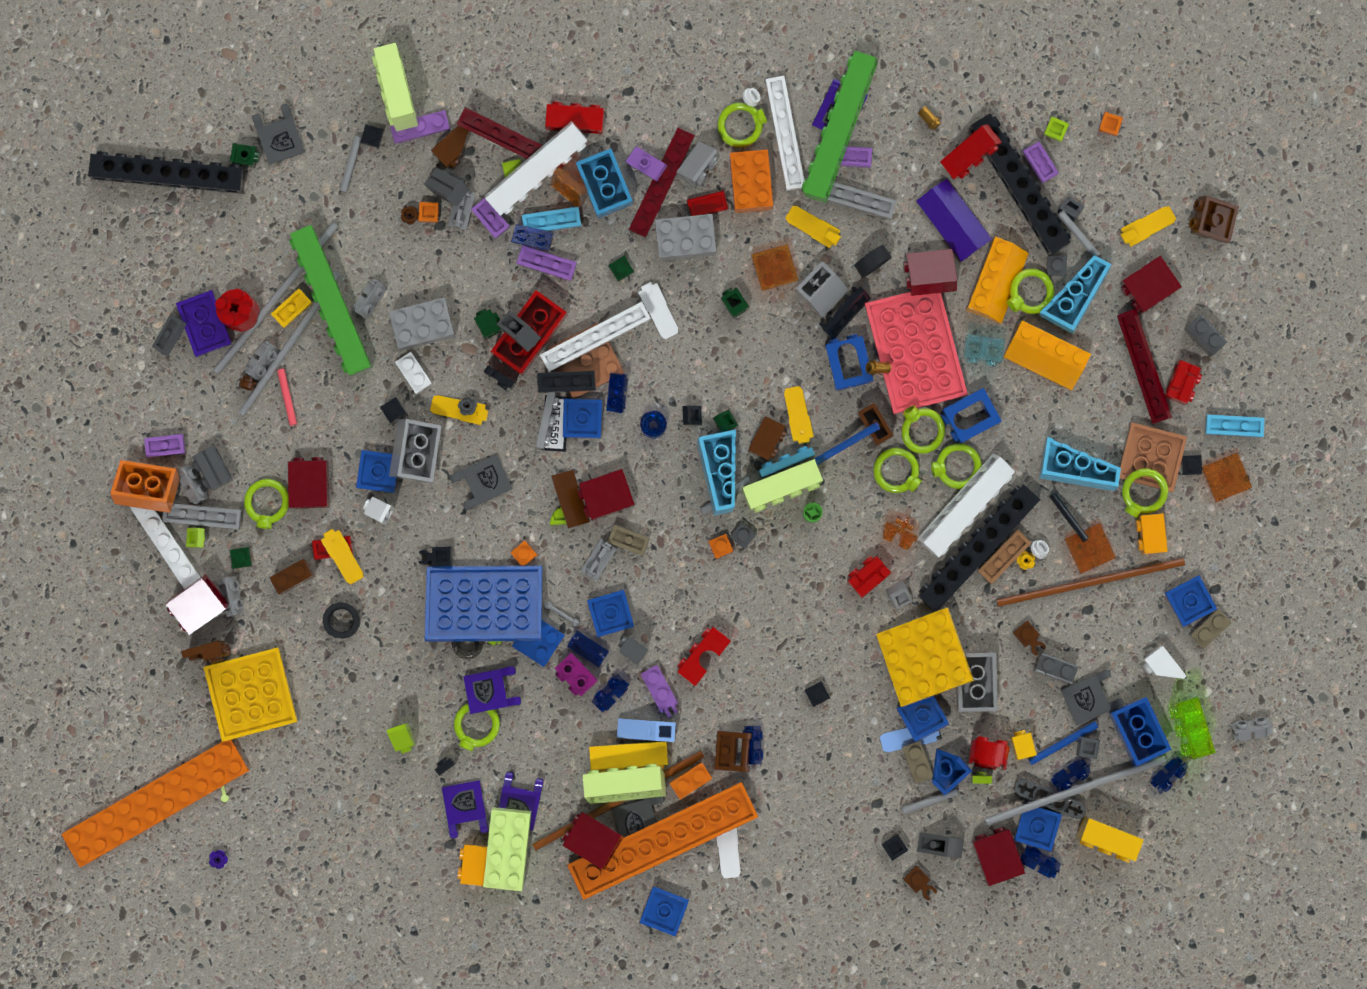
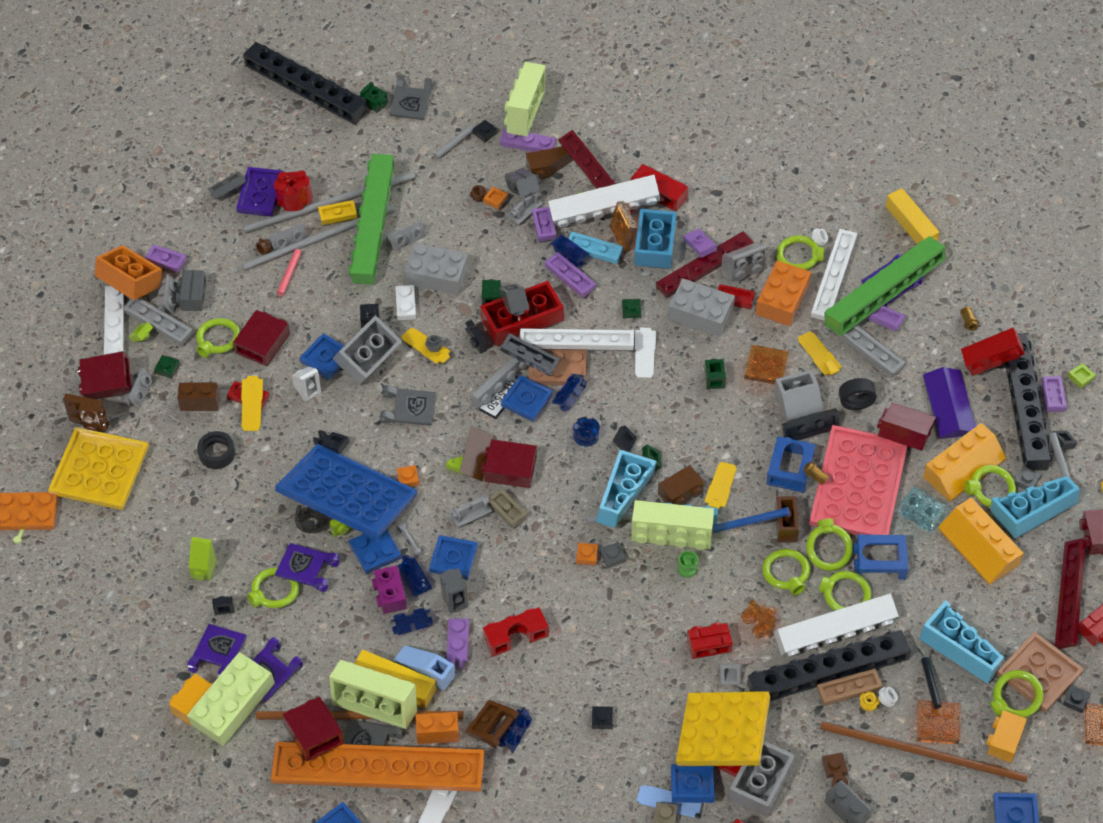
camera: 30 degrees right, 30 degrees down
(826, 31) = (910, 216): none -> yellow brick

